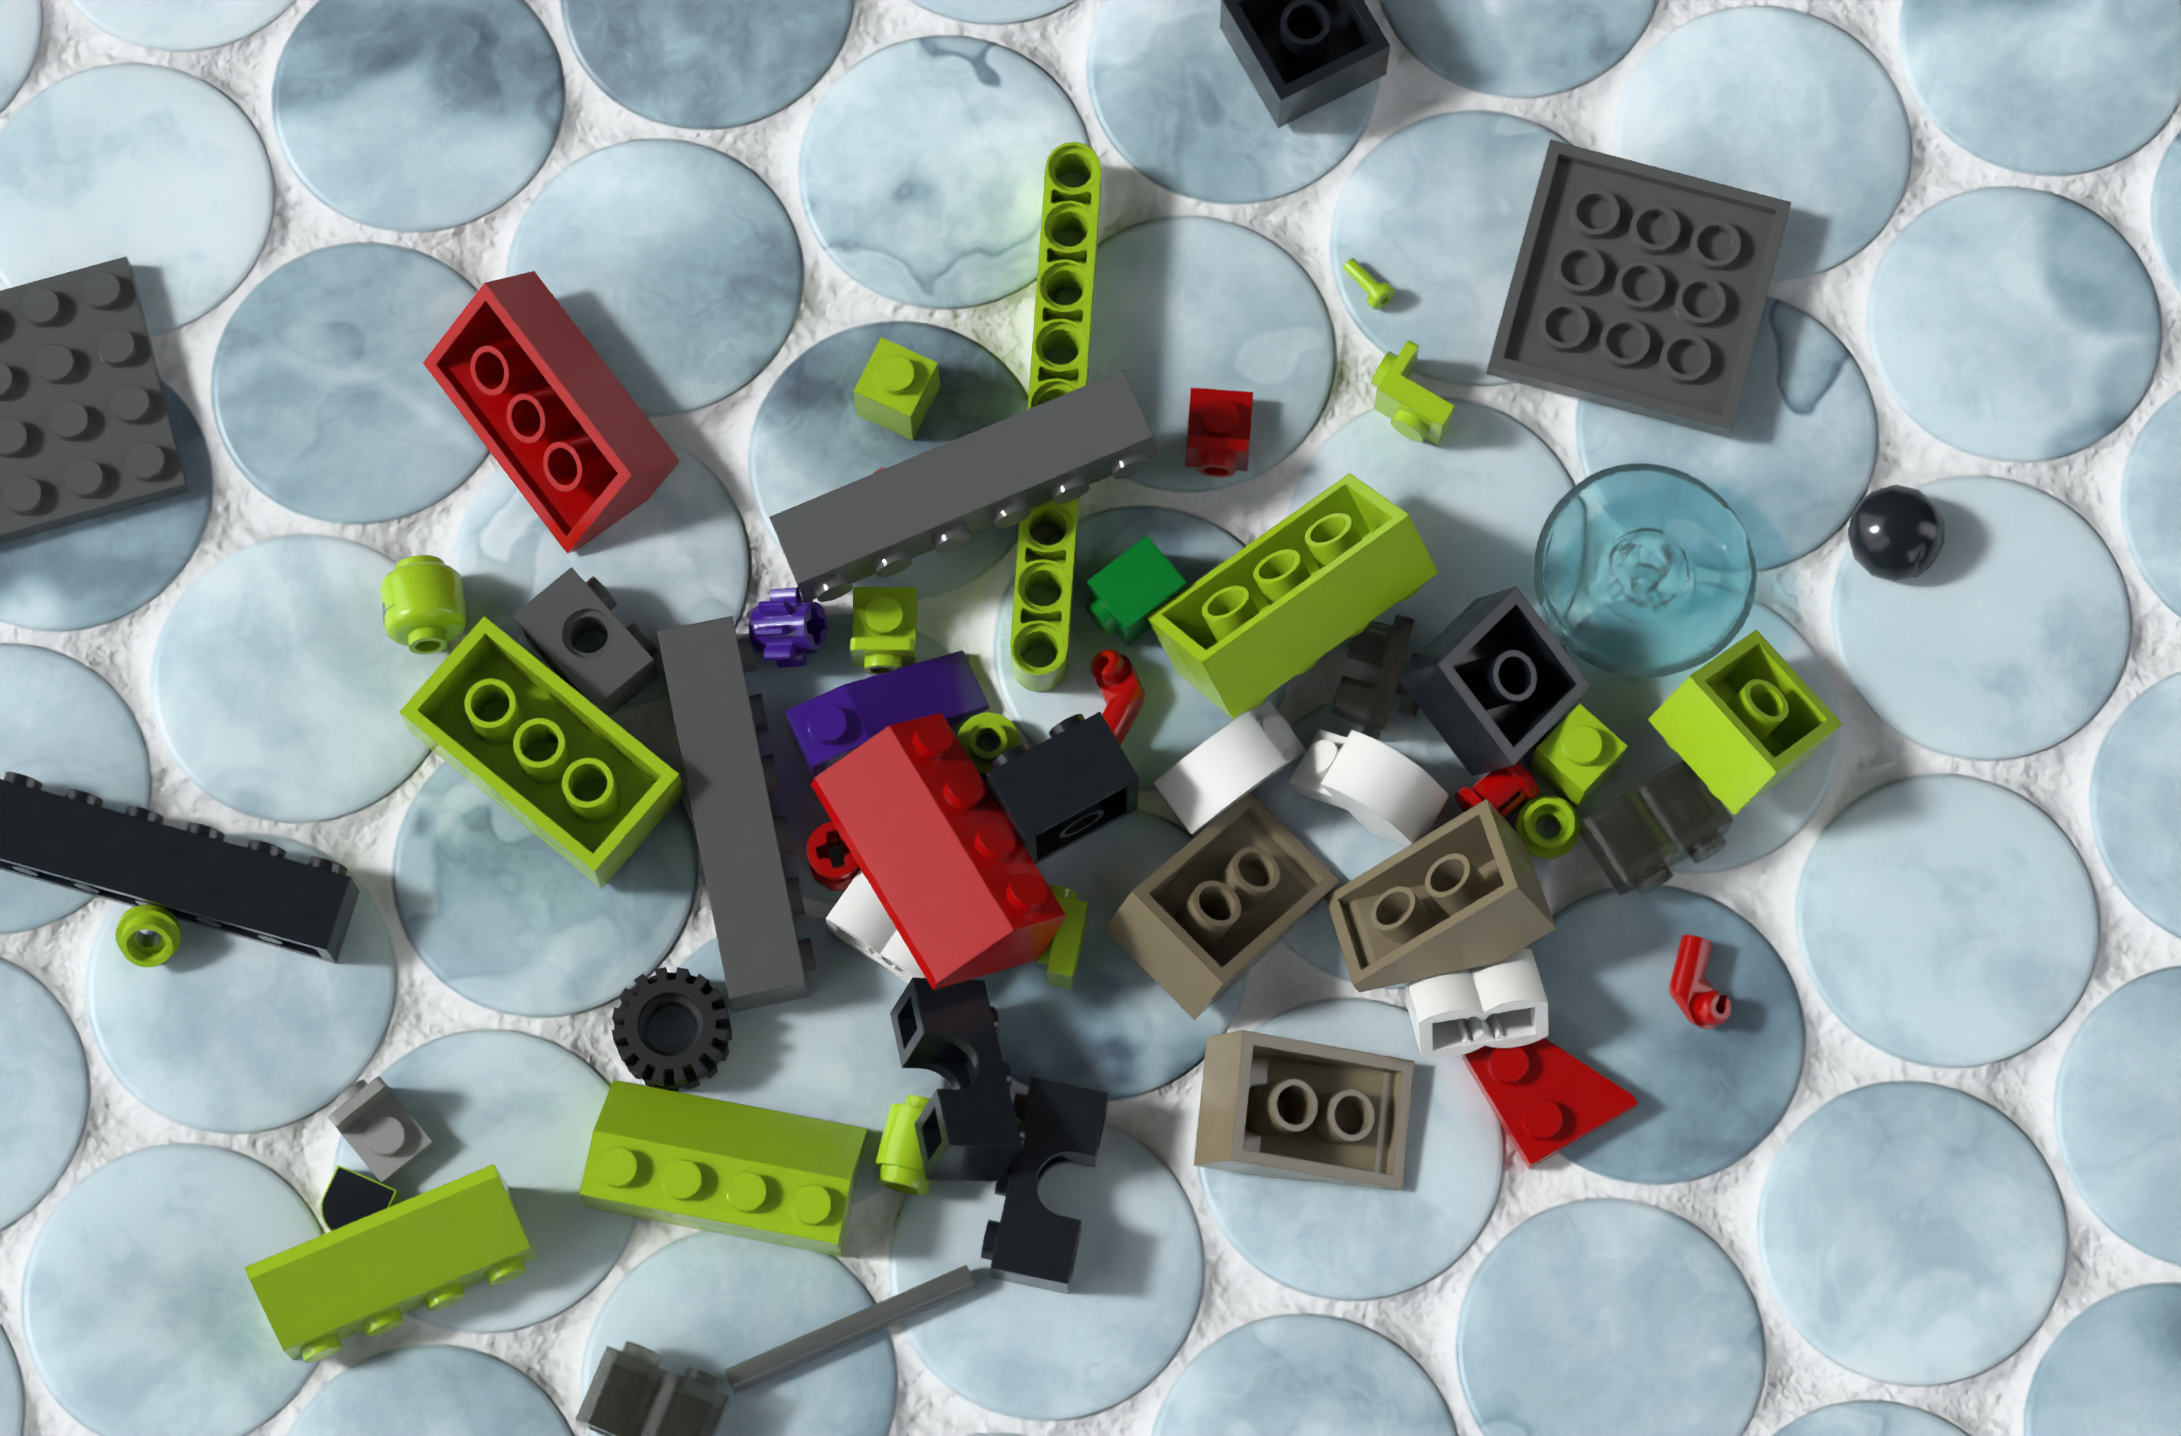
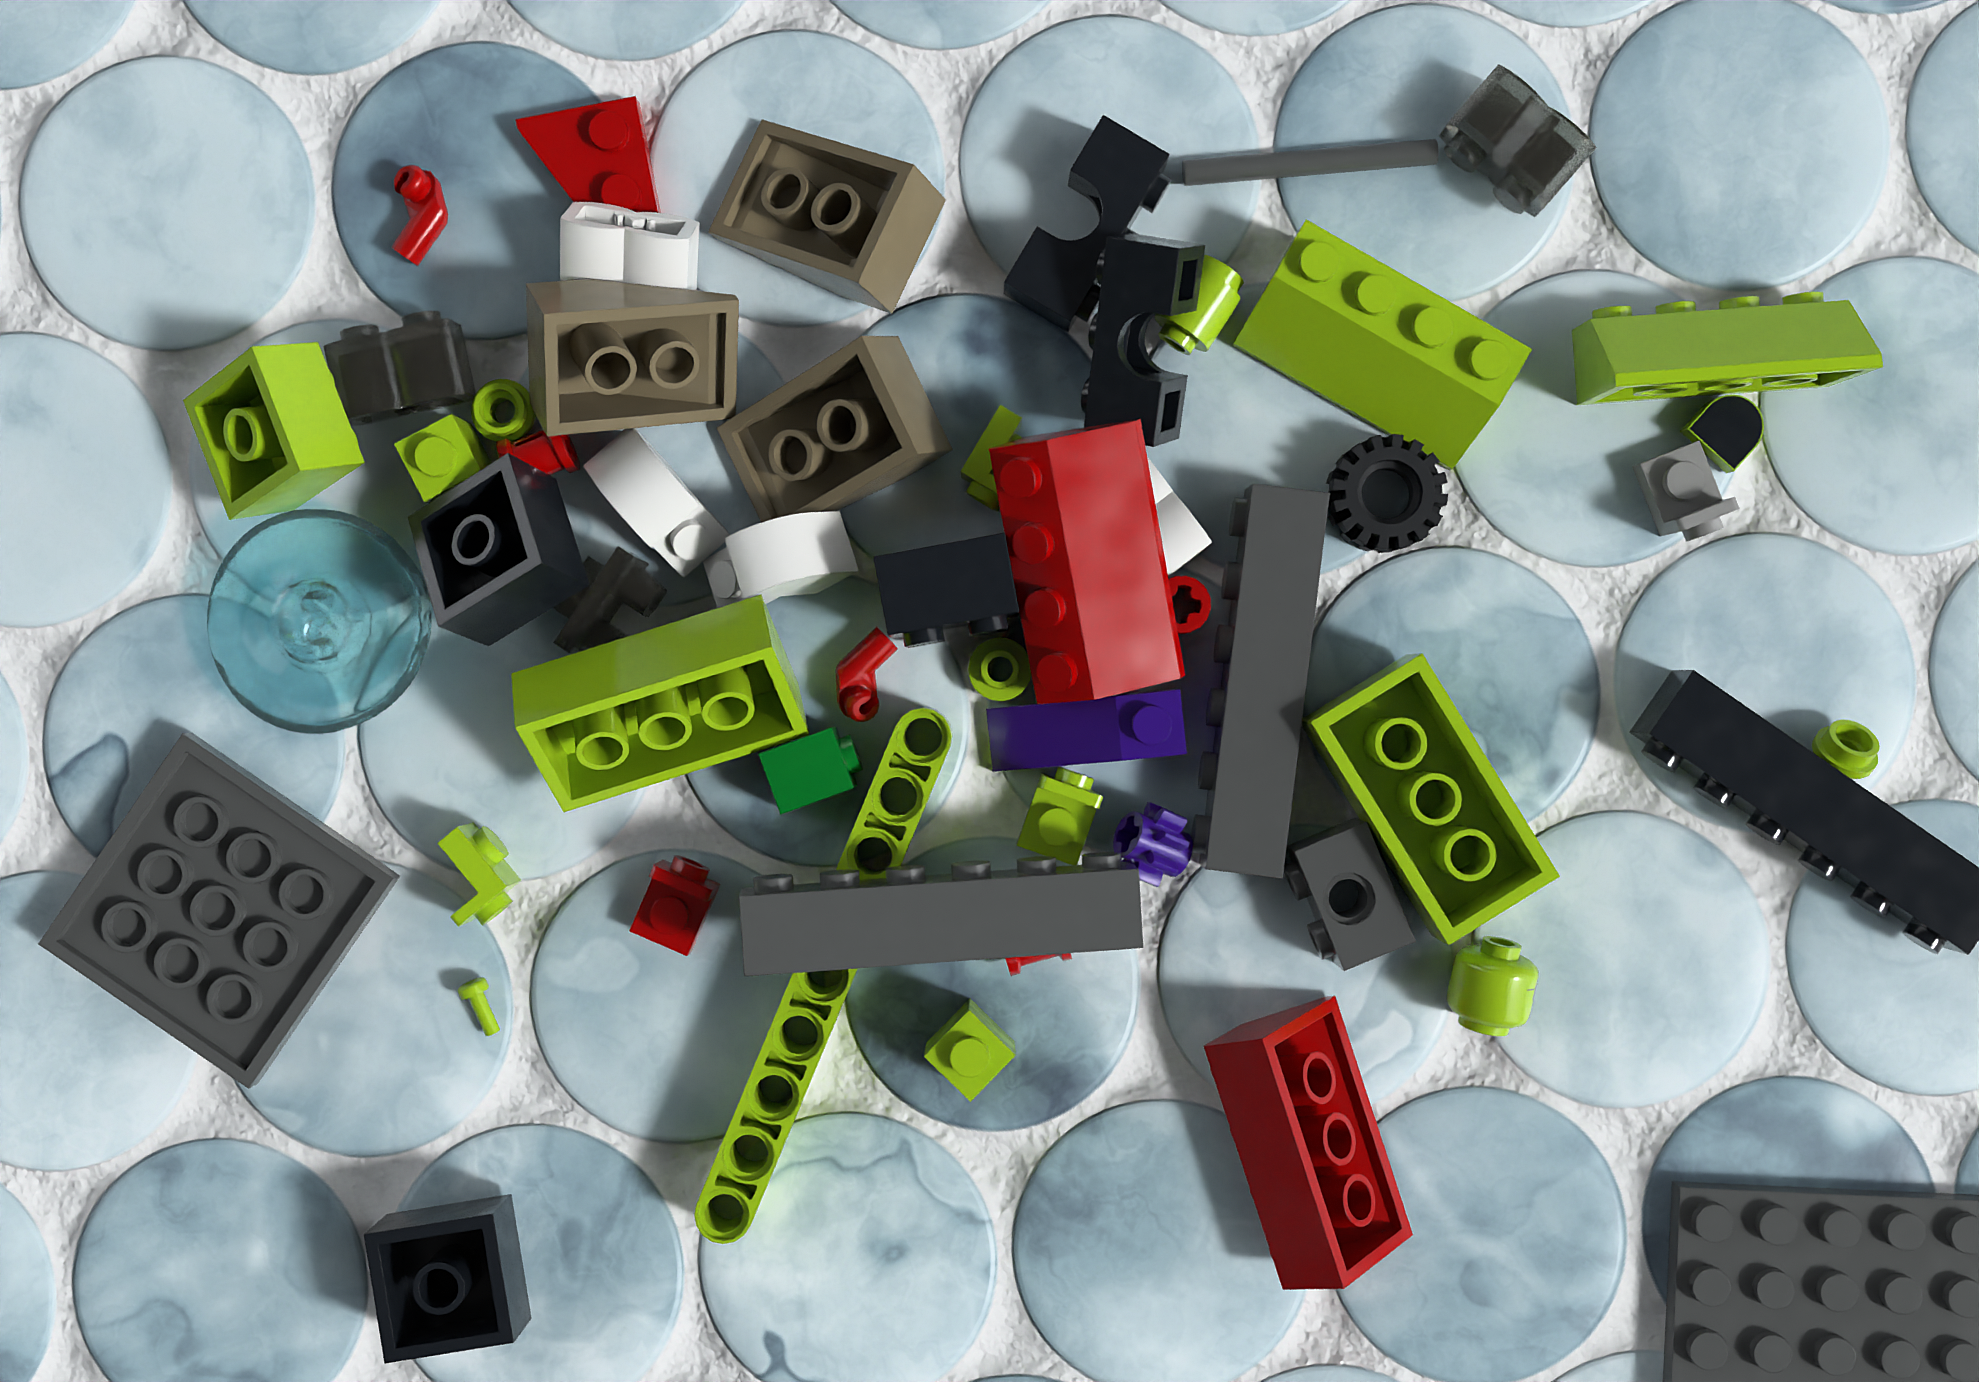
camera: 160 degrees left, 15 degrees up
(1896, 533) = (67, 583): black hair -> none

